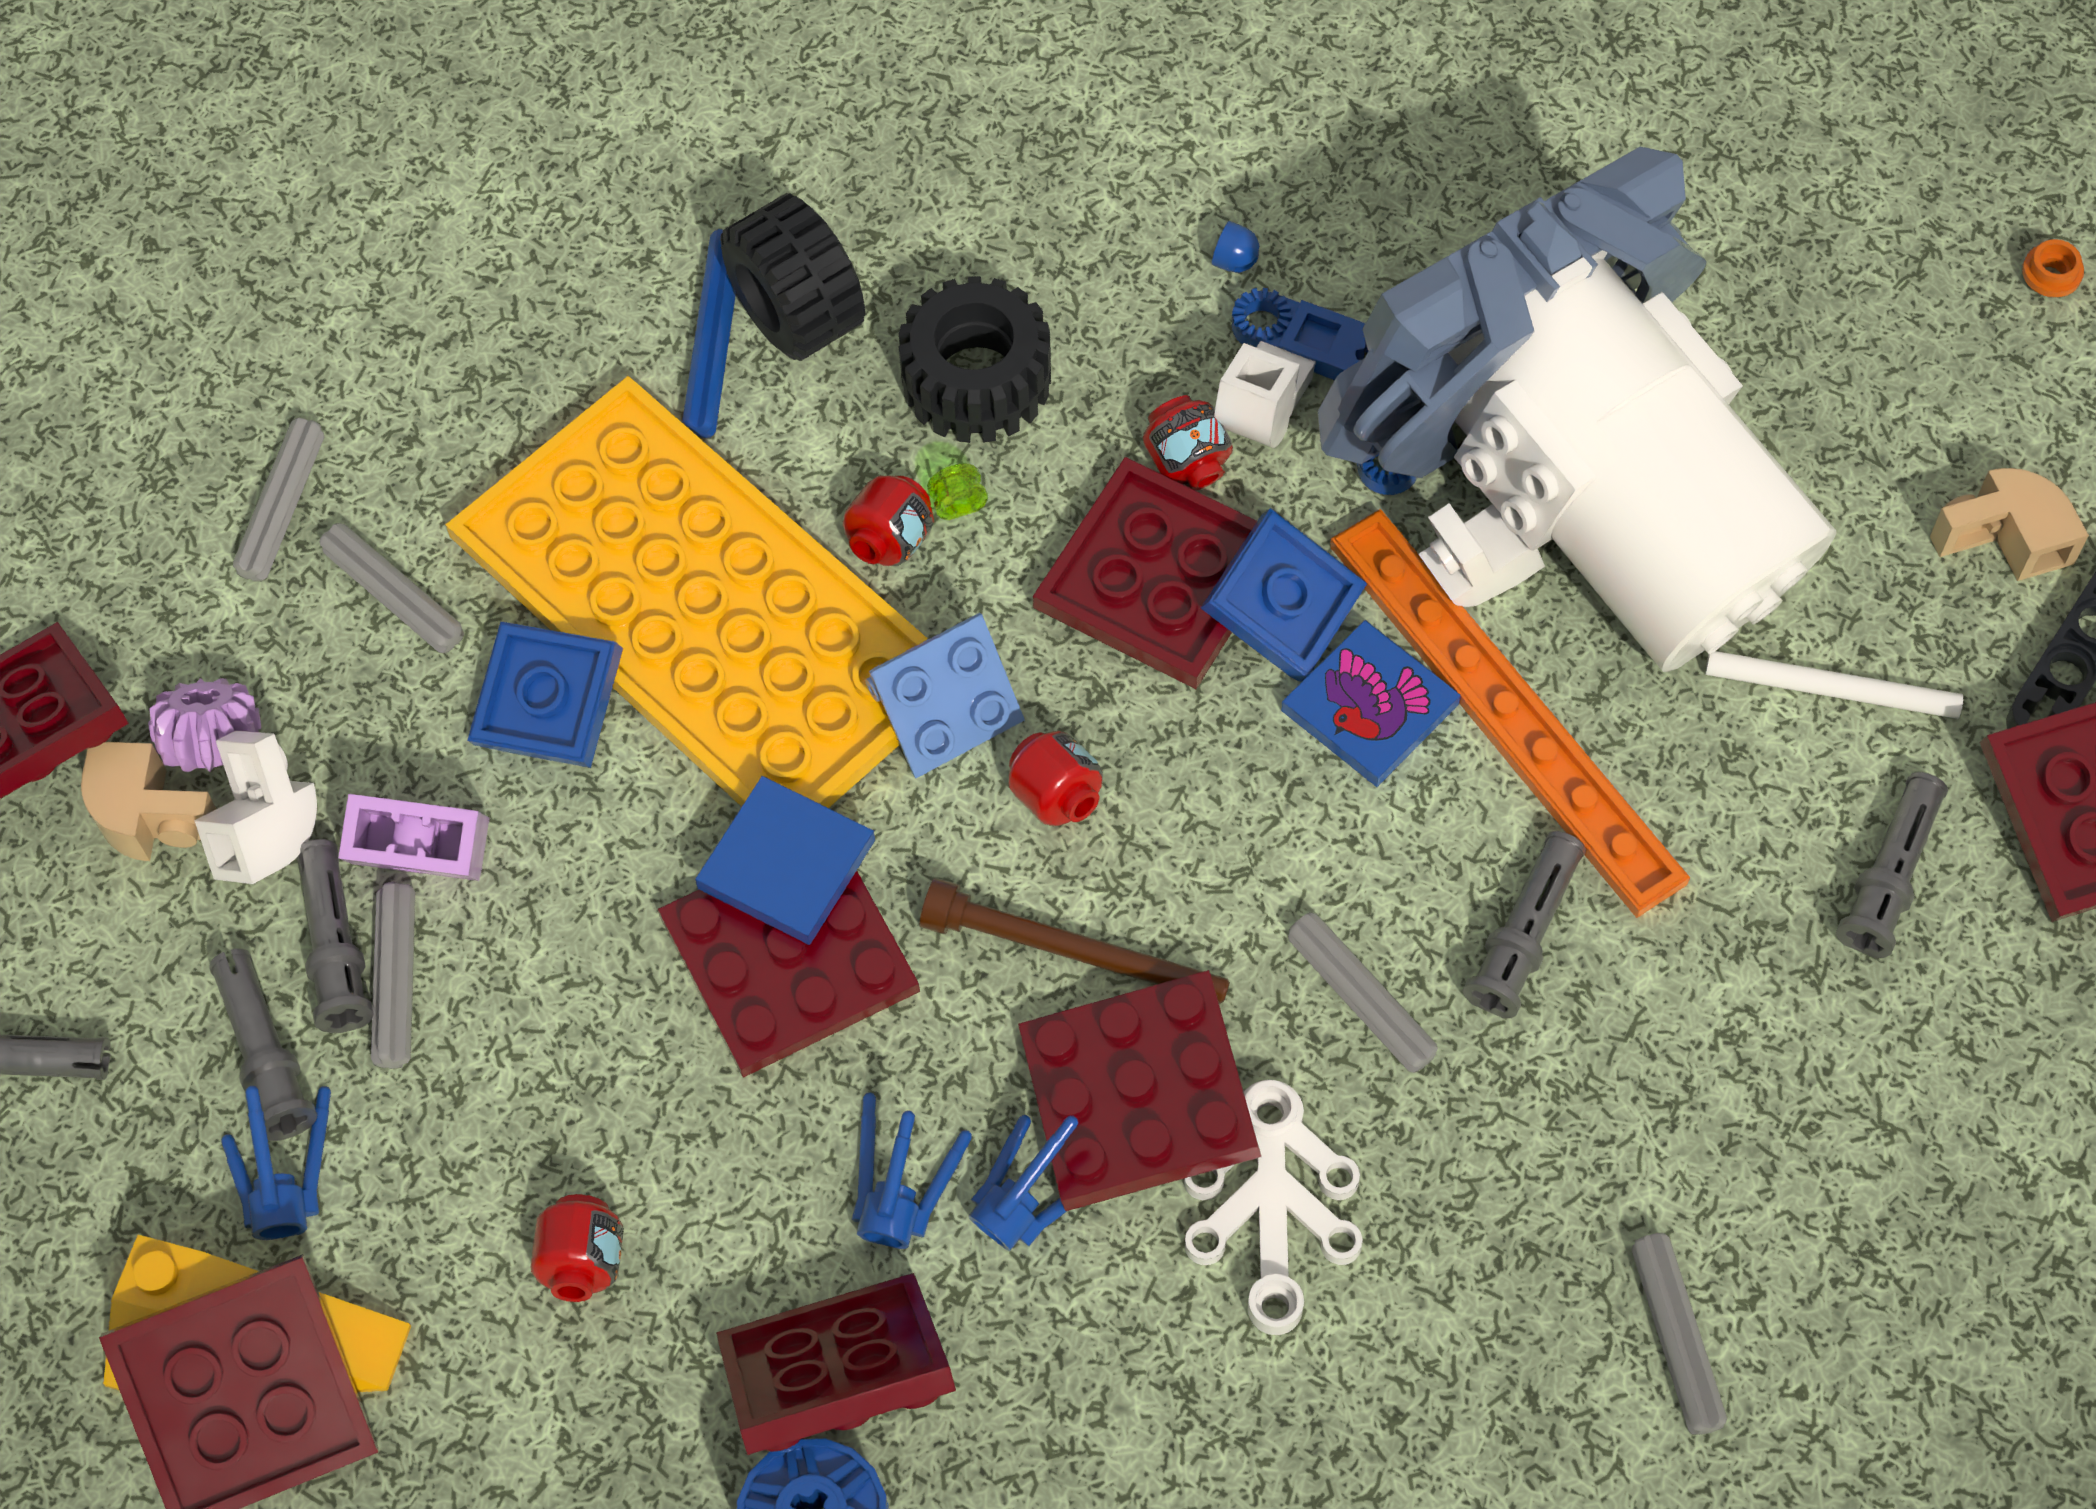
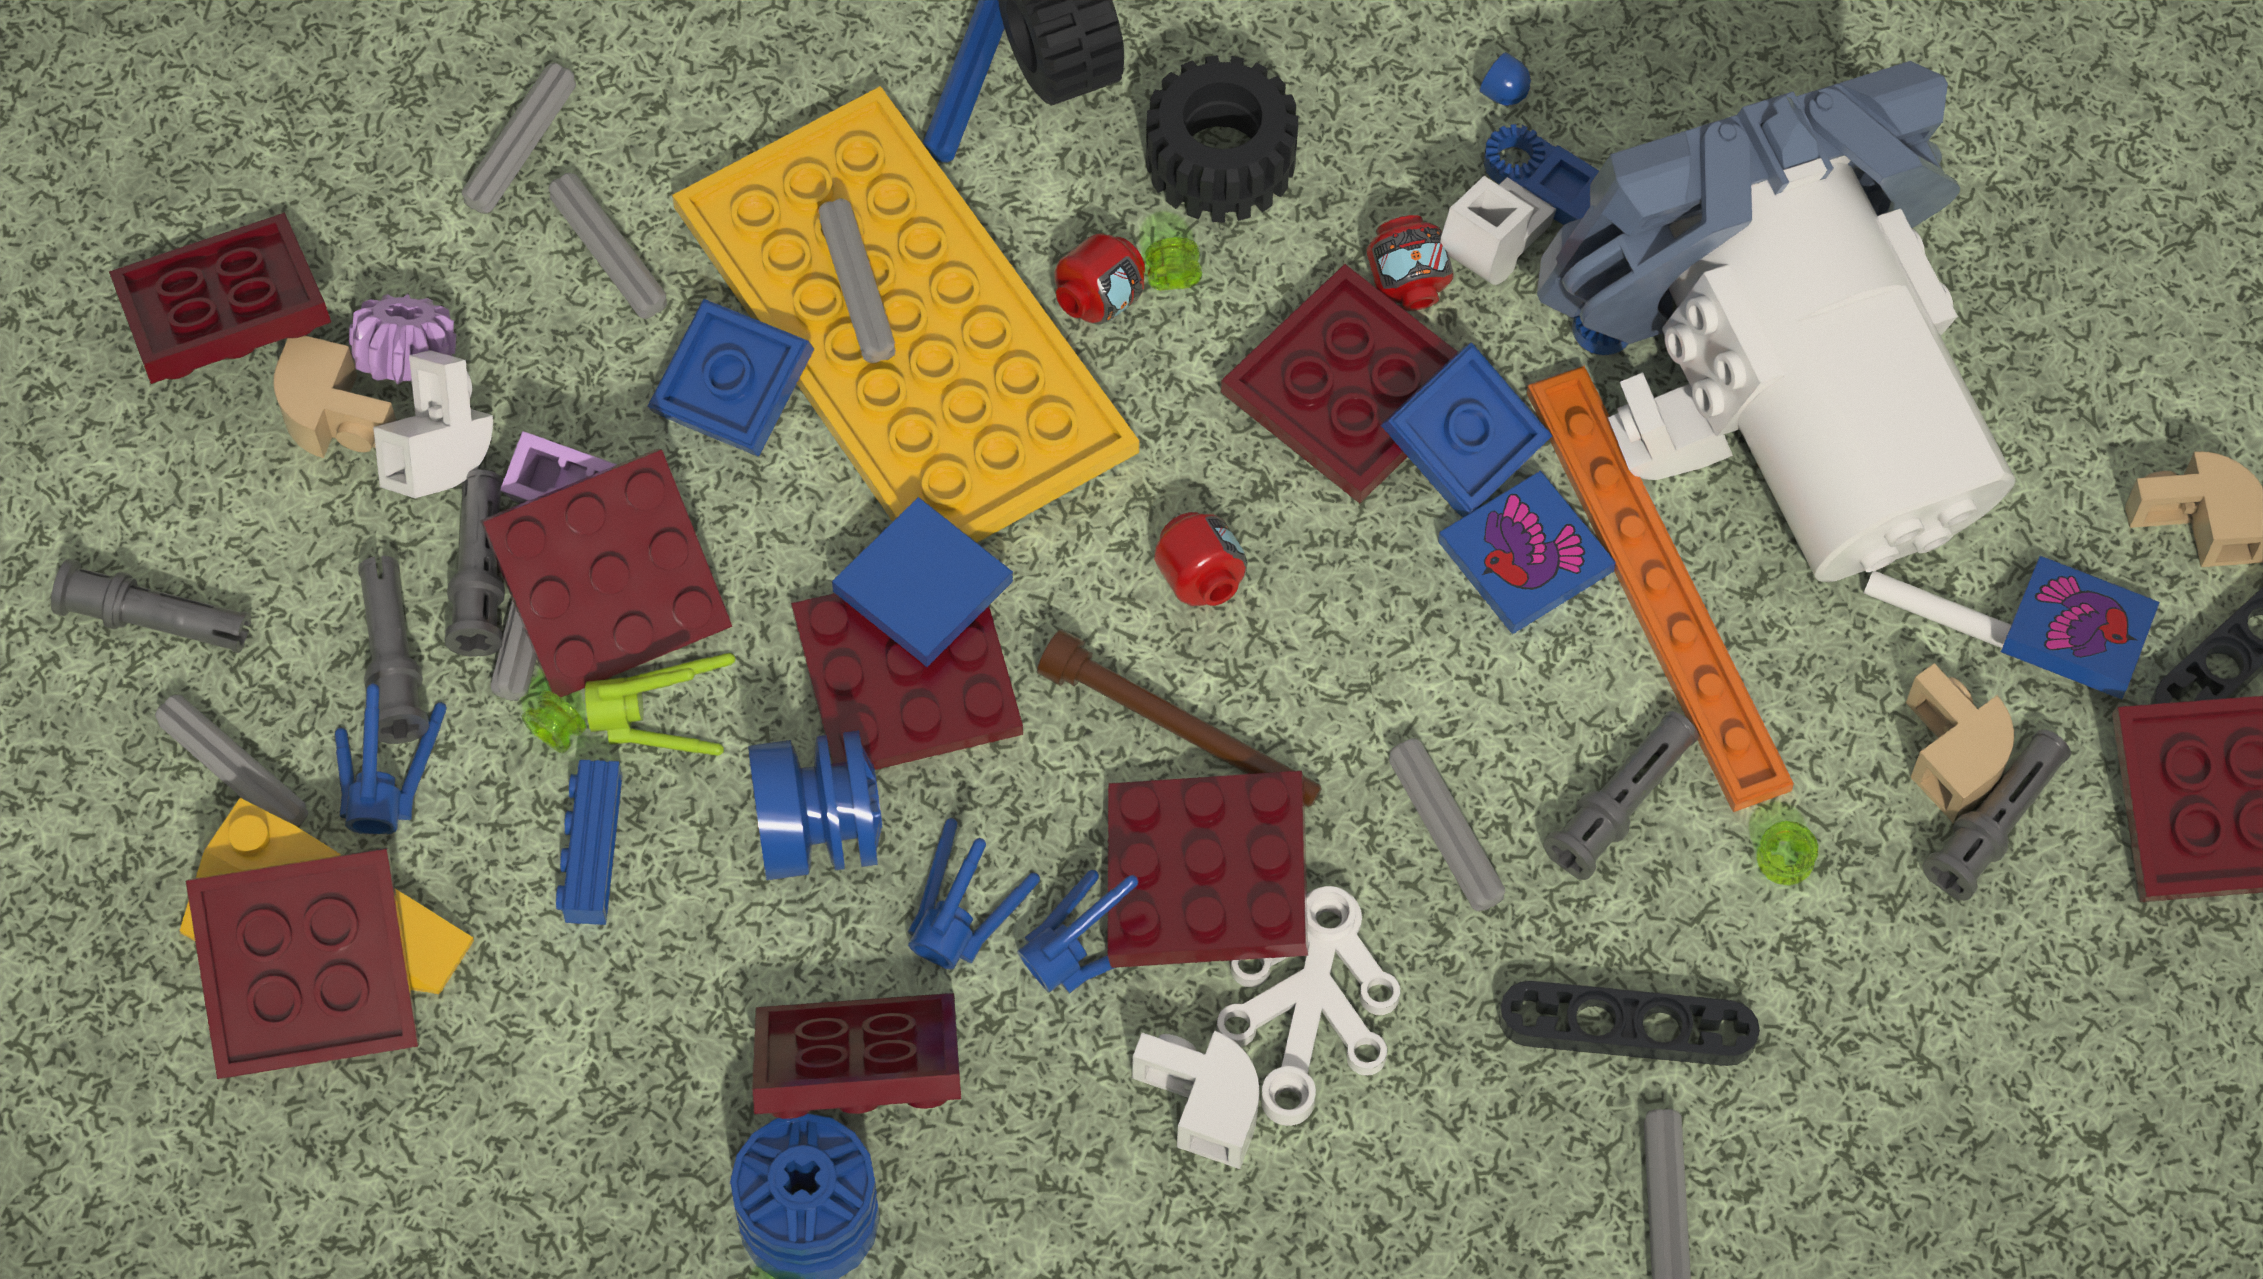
camera: 10 degrees right, 0 degrees up
(119, 1195) = (228, 760): none -> light grey axle
(444, 1081) = (554, 721): none -> clear neon green bush
(464, 919) = (606, 573): none -> dark red plate
(505, 1046) = (619, 702): none -> lime plant
(509, 1194) = (592, 842): none -> blue piece
(577, 1247) = (643, 899): red head -> none
(650, 572) = (857, 281): none -> light grey axle
(730, 1112) = (814, 805): none -> blue wheel
(946, 695) = (1114, 458): medium blue hinge -> none
(1206, 1309) = (1219, 1091): none -> white brick
(1589, 1143) = (1628, 1012): none -> black beam
(1693, 964) = (1800, 840): none -> clear neon green bush
(1853, 802) = (1970, 746): none -> tan brick
(1924, 664) = (2080, 627): none -> blue tile

